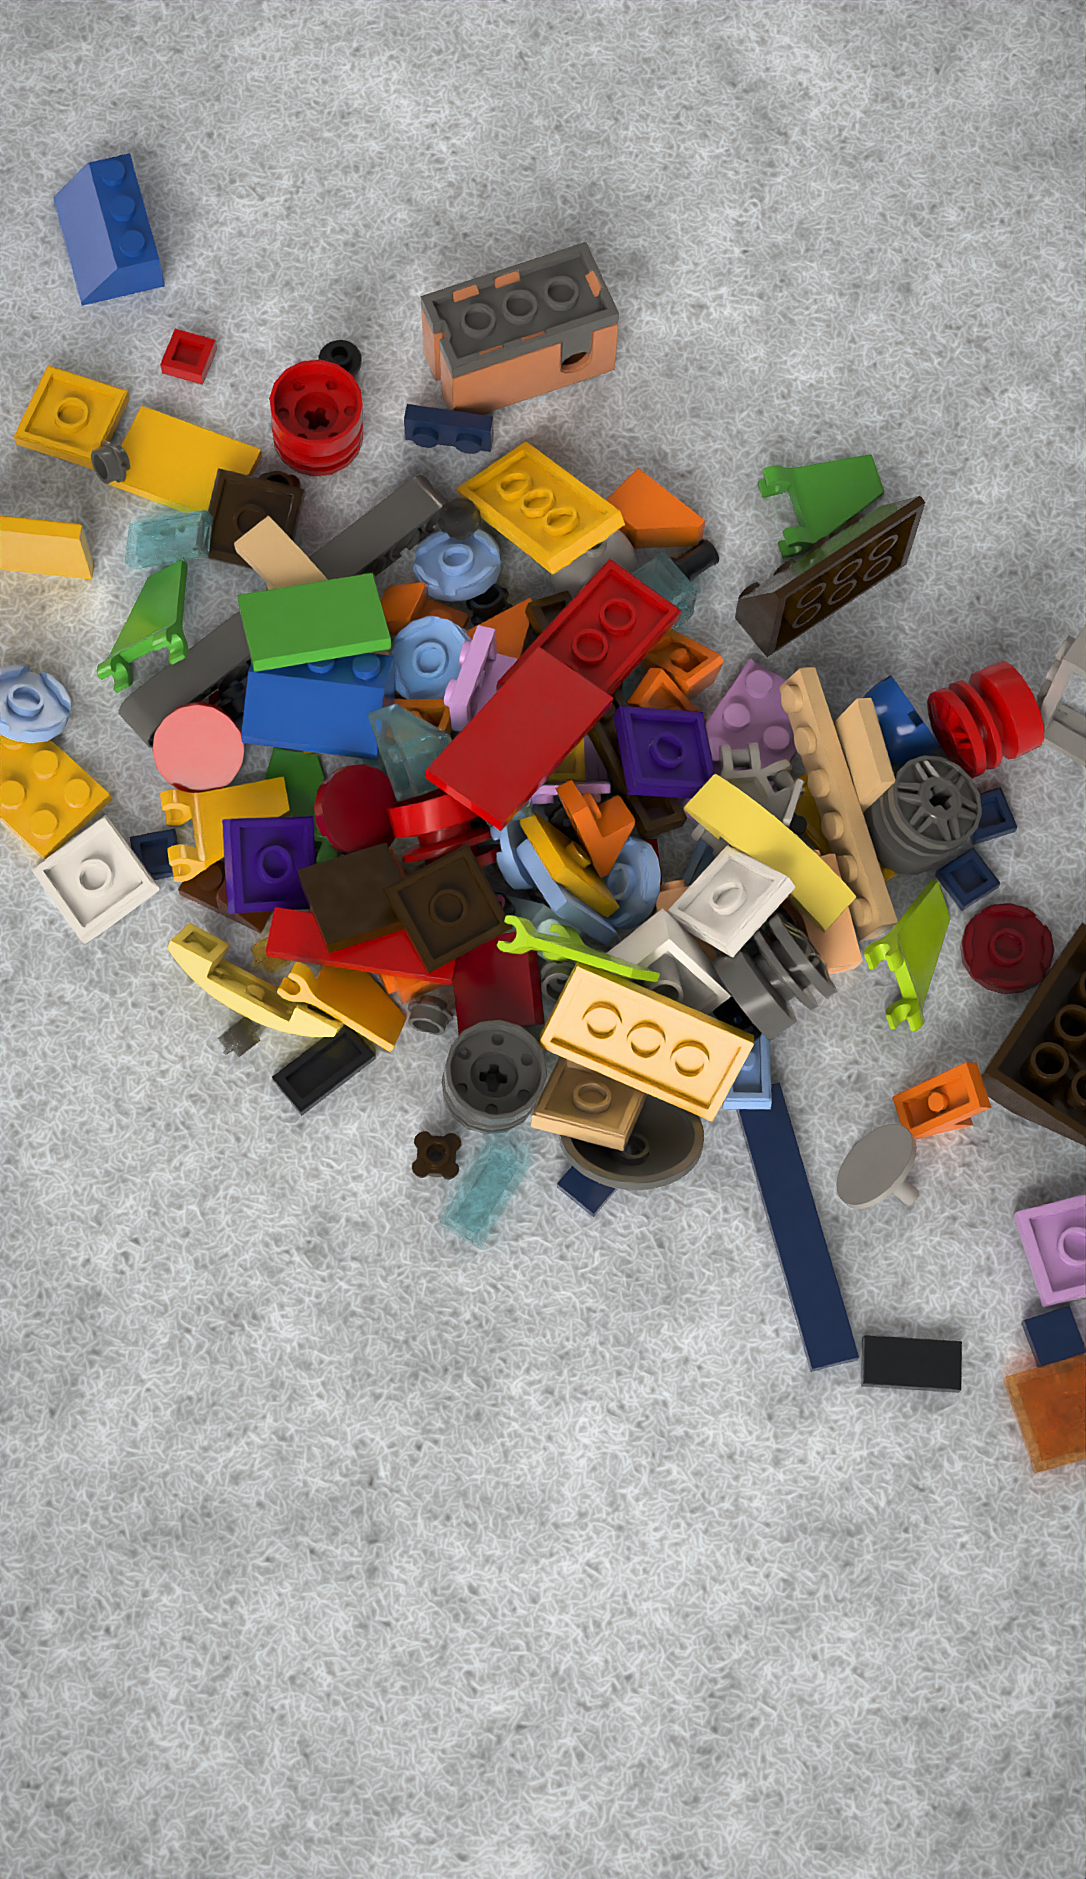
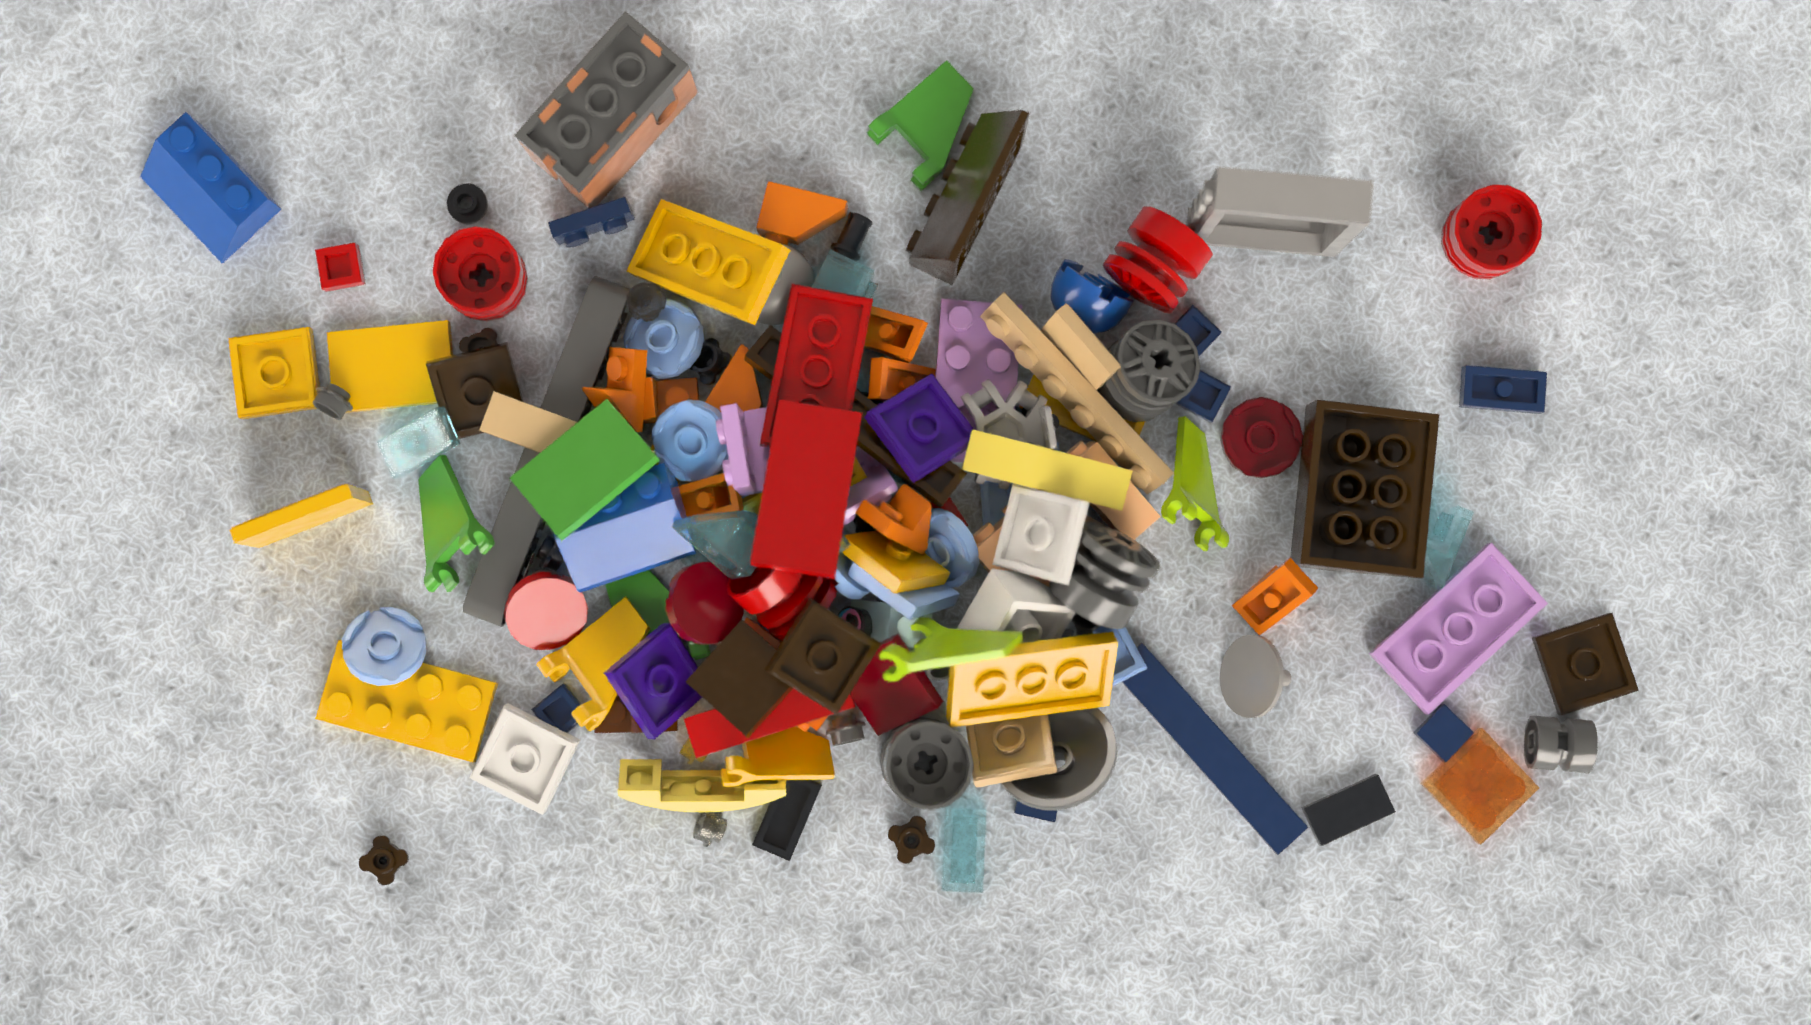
camera: 25 degrees left, 15 degrees up
(399, 578) = (624, 385): none -> orange slope

